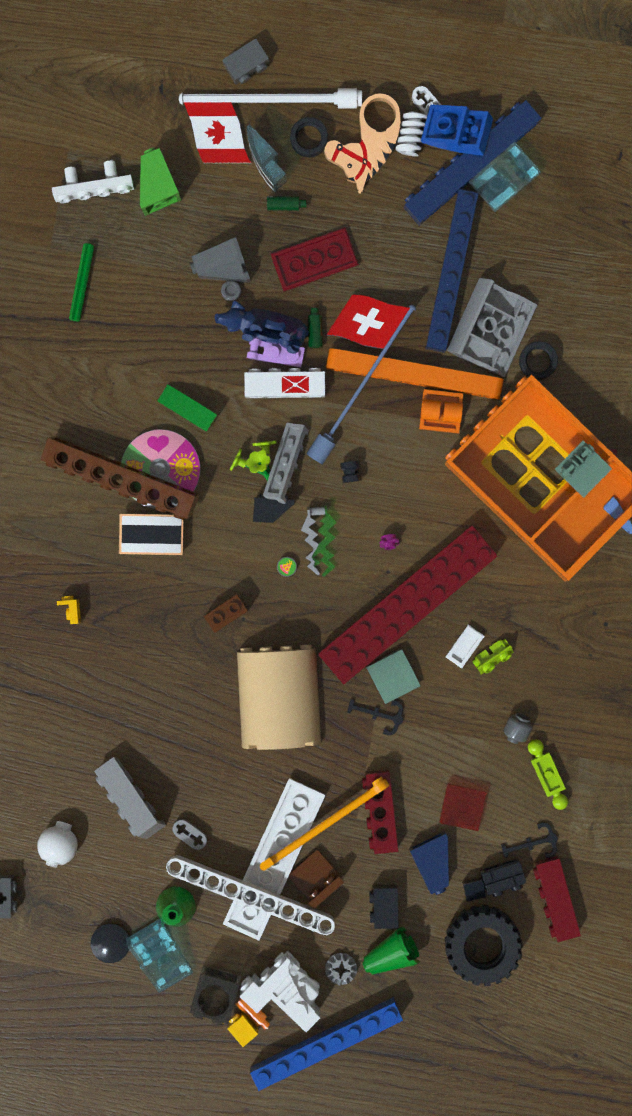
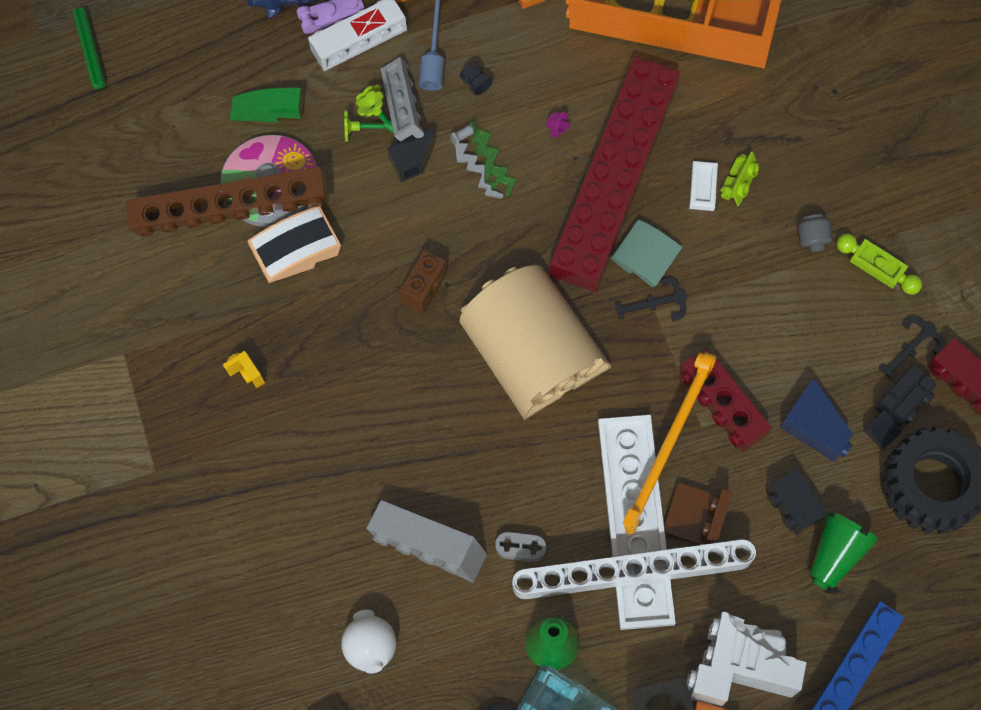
camera: 30 degrees left, 20 degrees down
(286, 566) = (463, 206): tile -> none
(334, 962) = (788, 618): light grey gear -> none
(462, 807) = (810, 347): clear red plate -> none

